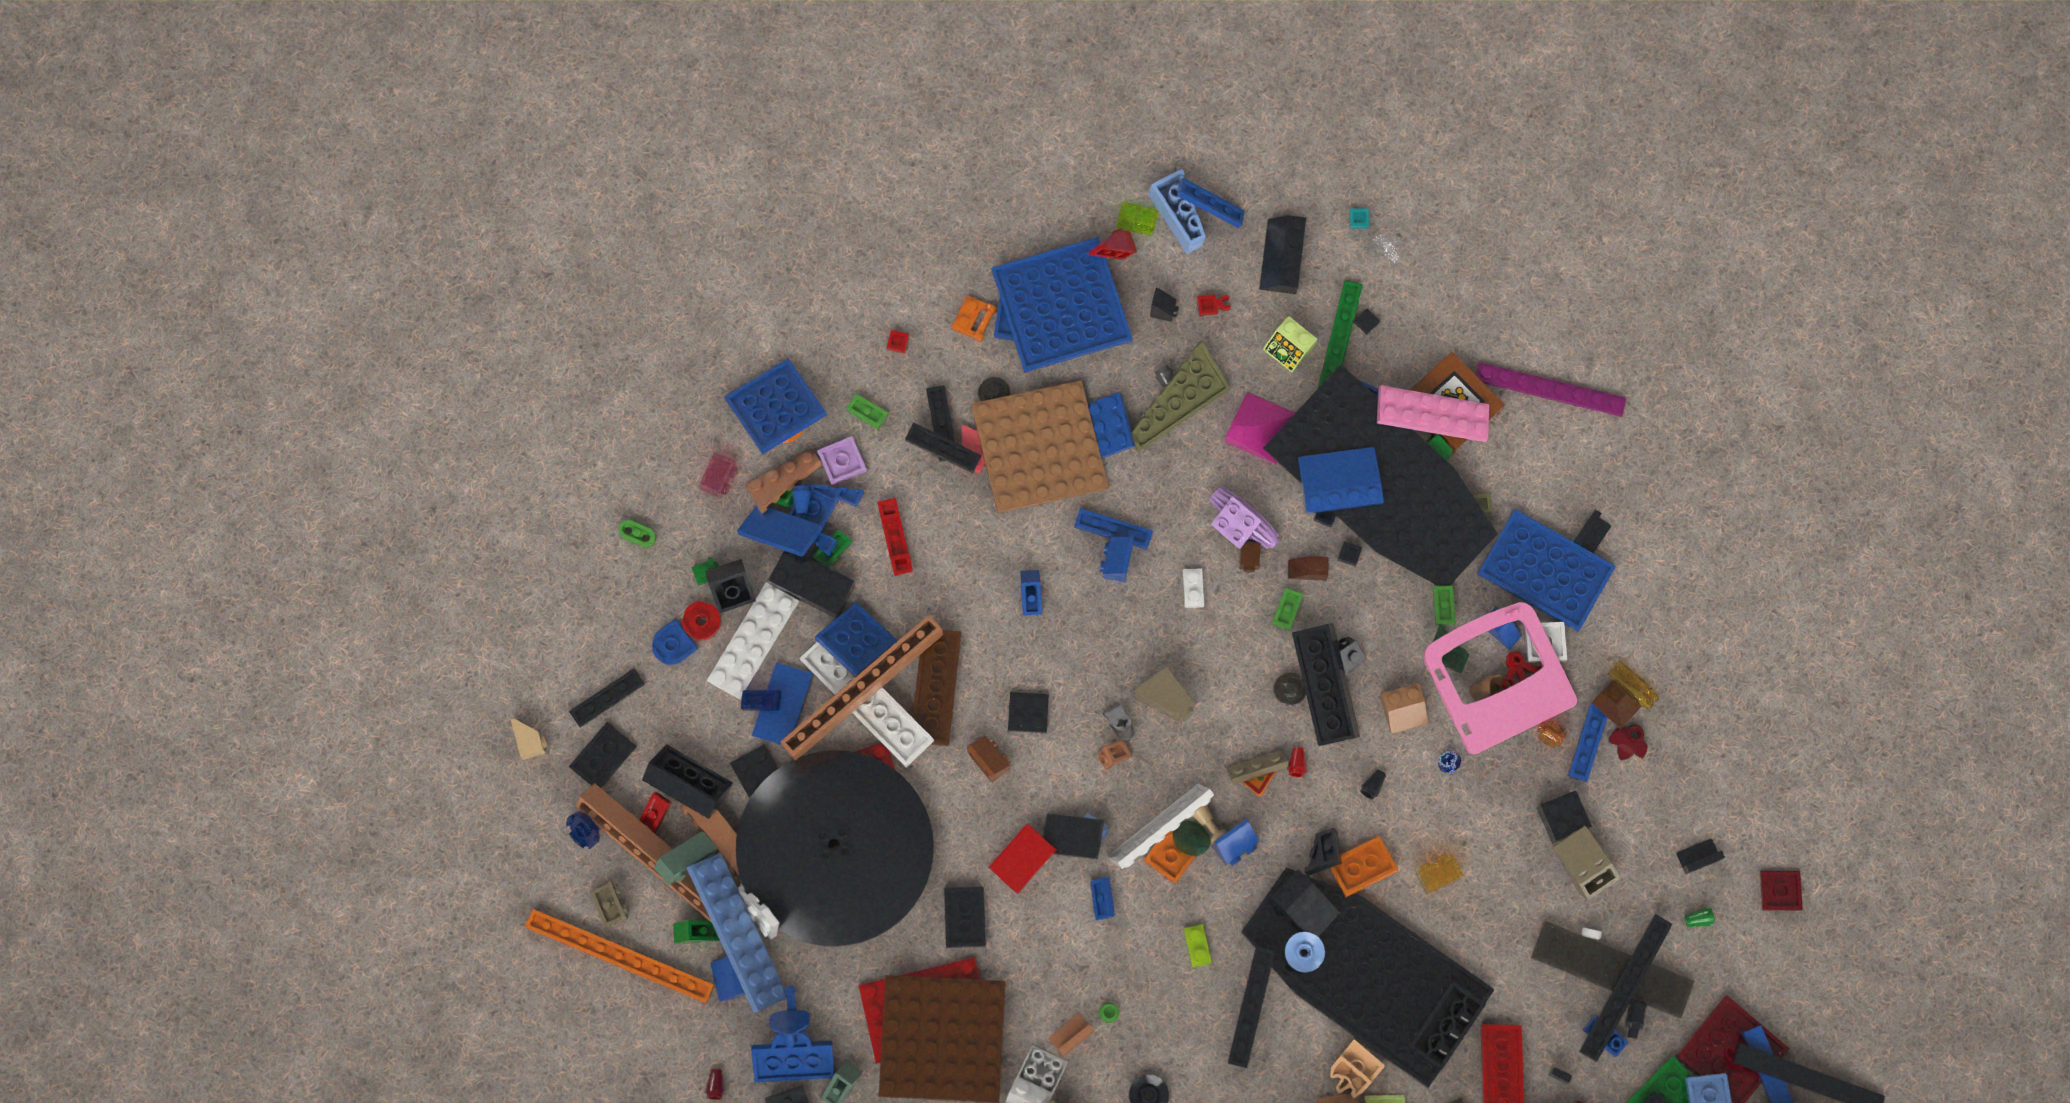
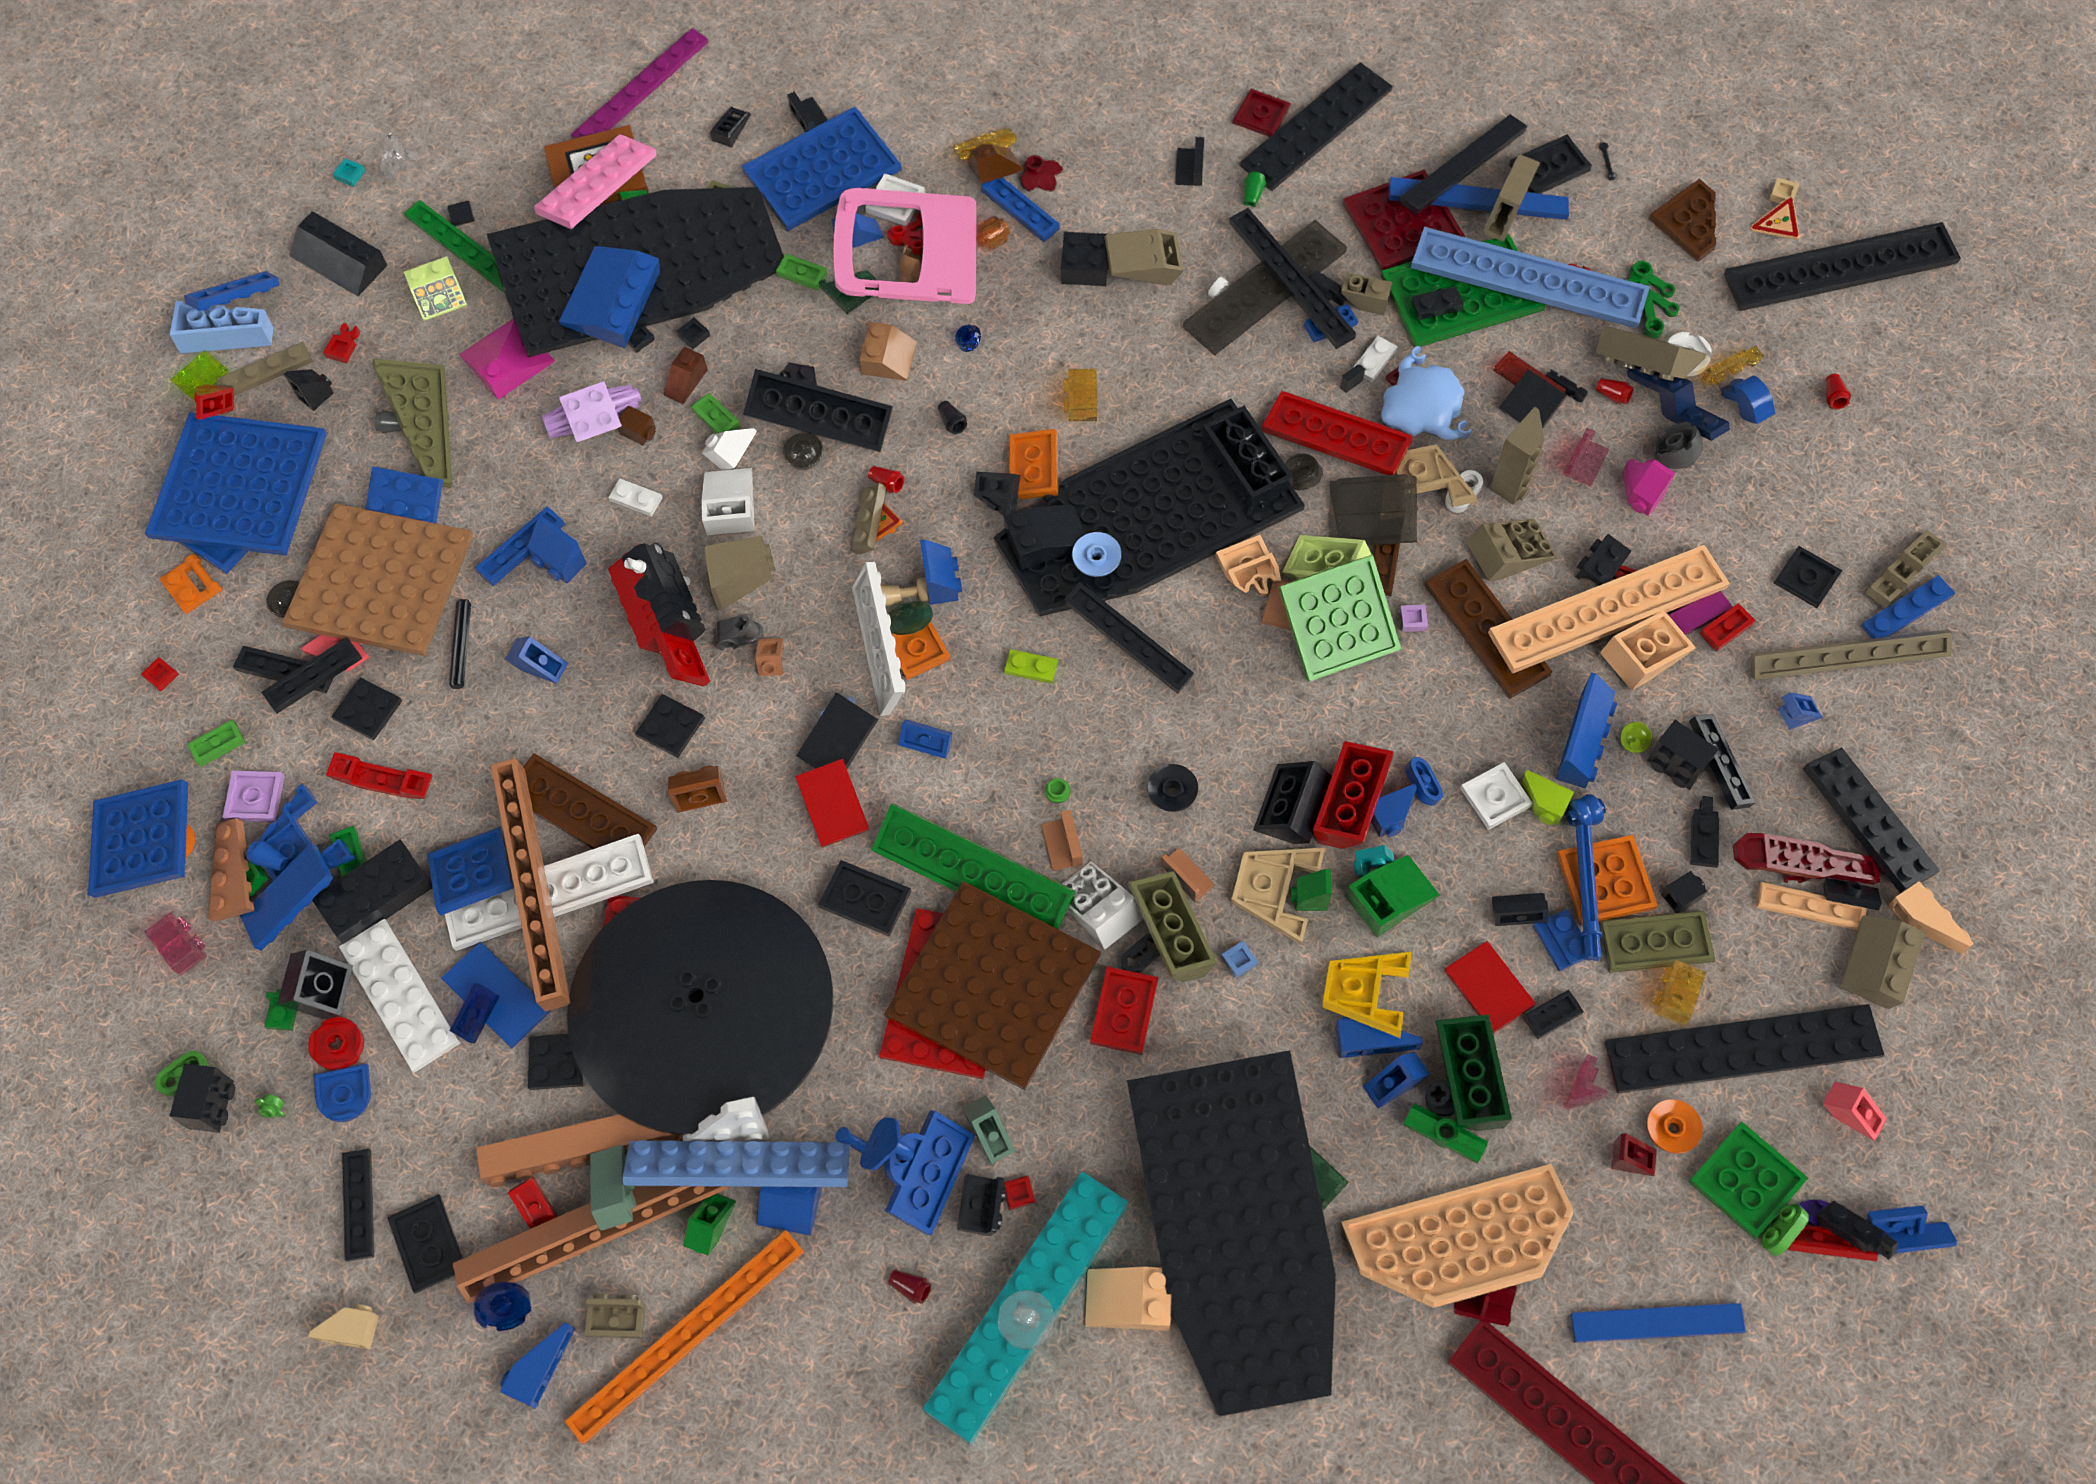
camera: 60 degrees left, 10 degrees down
(549, 871) = (533, 1371): none -> blue slope
(624, 560) = (202, 1098): none -> black brick
(641, 604) = (270, 1106): none -> bright green plate
(687, 781) = (518, 1143): black slope -> none
(941, 496) = (366, 708): none -> black plate
(1019, 531) = (460, 643): none -> black axle
(1020, 972) = (955, 859): none -> green plate
(1105, 662) = (661, 609): none -> piece
(1165, 262) = (266, 368): none -> dark tan plate
(1222, 657) = (728, 501): none -> white slope
(1265, 634) = (728, 447): none -> white slope
(1453, 1078) = (1307, 468): none -> clear smoke hat
(1535, 472) = (728, 139): none -> black slope
(1590, 1085) = (1376, 357): none -> white plate
(1643, 1052) = (1367, 293): none -> dark tan slope
(1791, 941) = (1316, 125): none -> black plate

